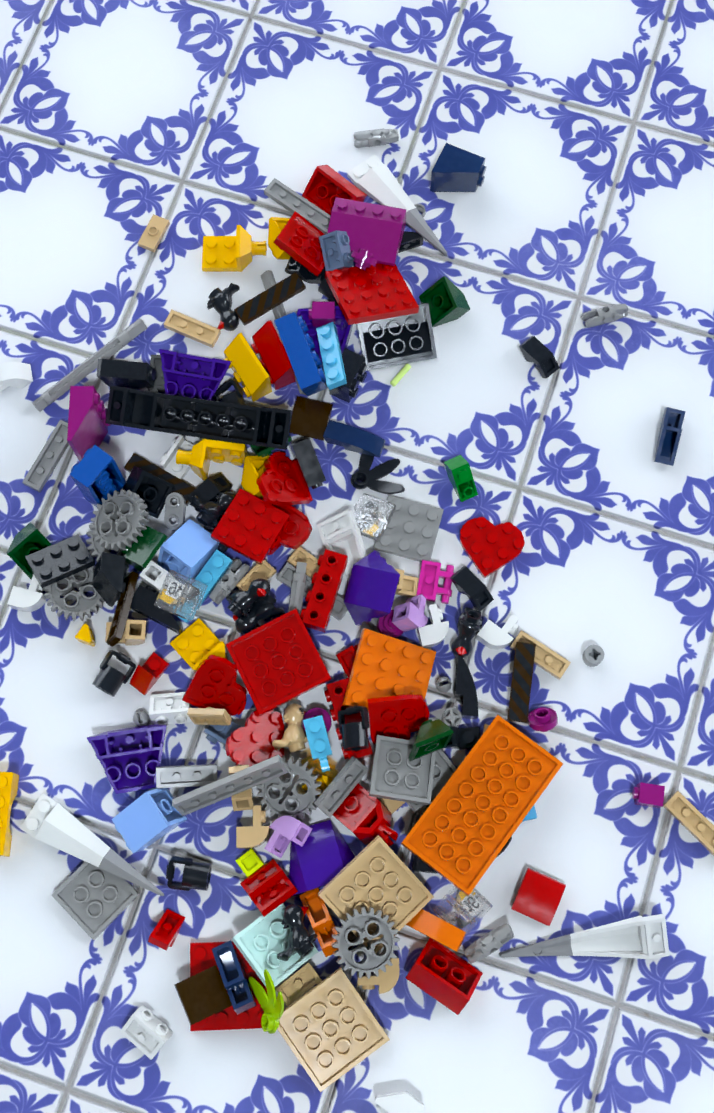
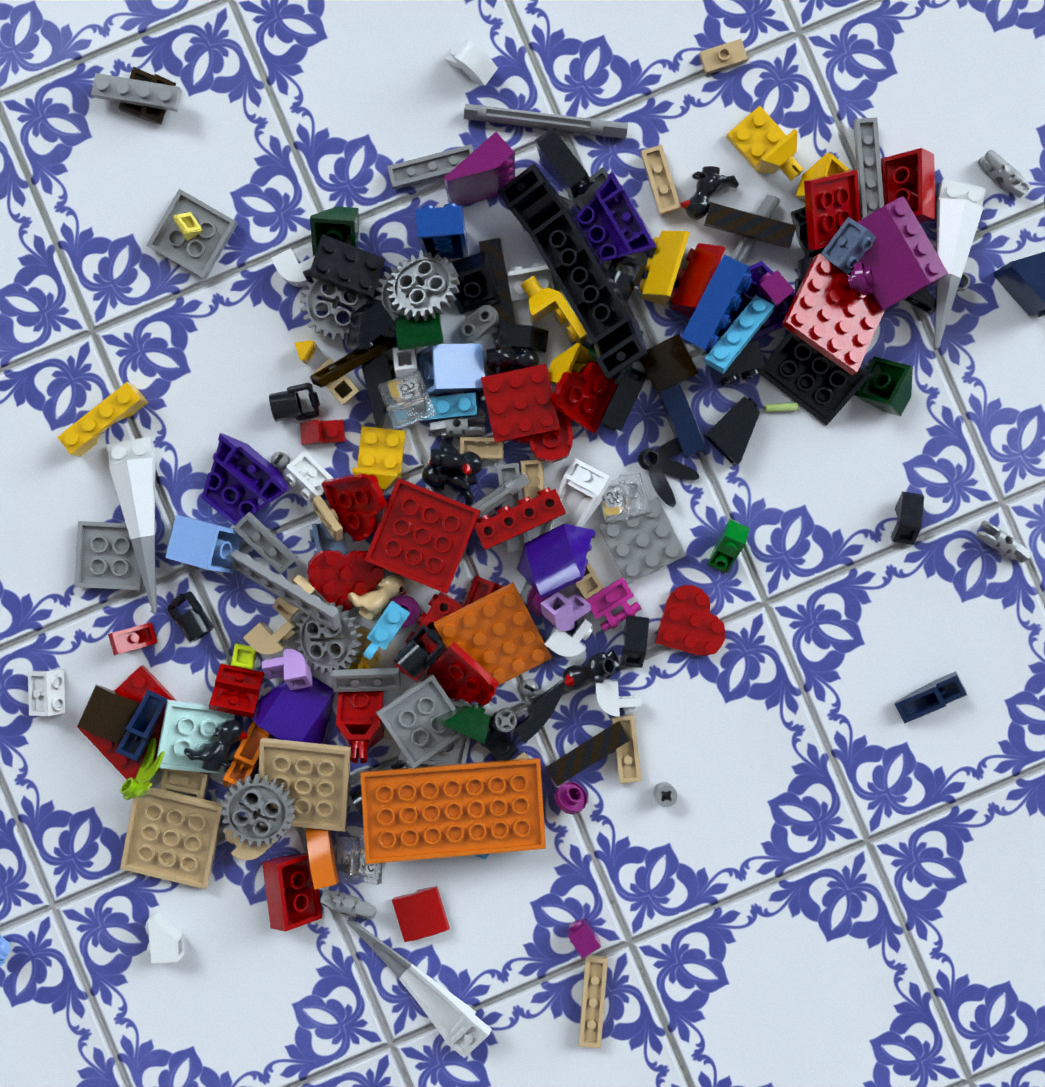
camera: 50 degrees right, 15 degrees up
(389, 413) = (734, 430): none -> black slope

